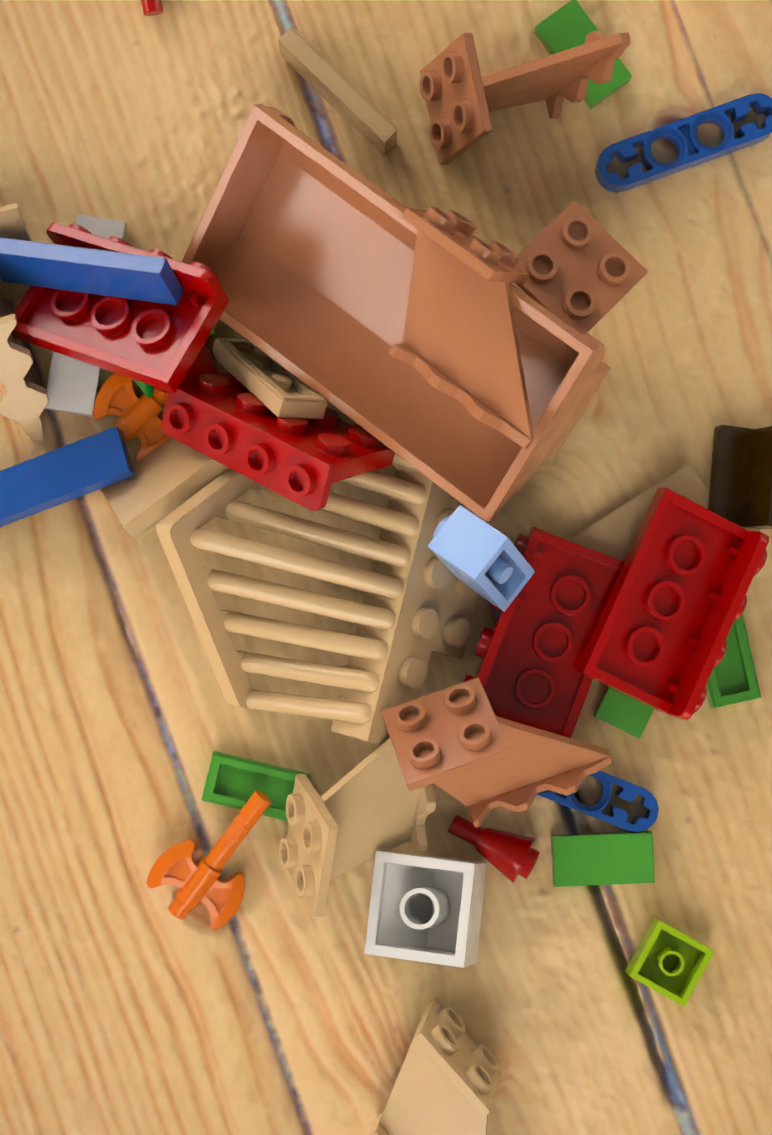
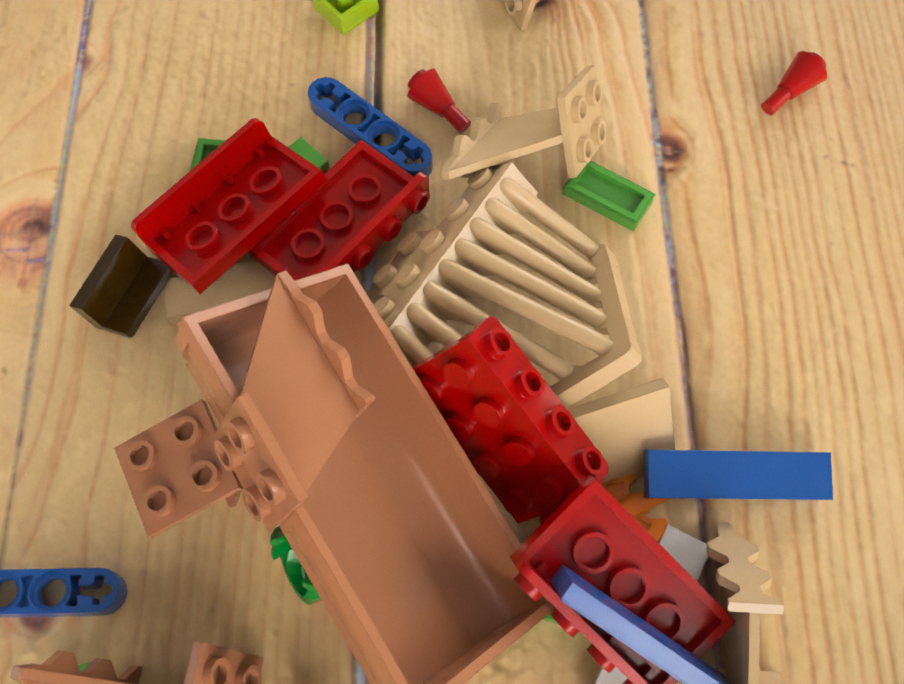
camera: 155 degrees left, 20 degrees down
(68, 1027) = (804, 73): none -> red cone
(201, 880) = (667, 141): orange piece -> none
(268, 380) = (492, 458): tan tile -> none
(426, 908) = (505, 67): white slope -> none
(481, 557) = (369, 256): light blue brick -> none
(482, 757) = (442, 132): nougat piece -> none
(602, 858) = (366, 73): bright green tile -> none

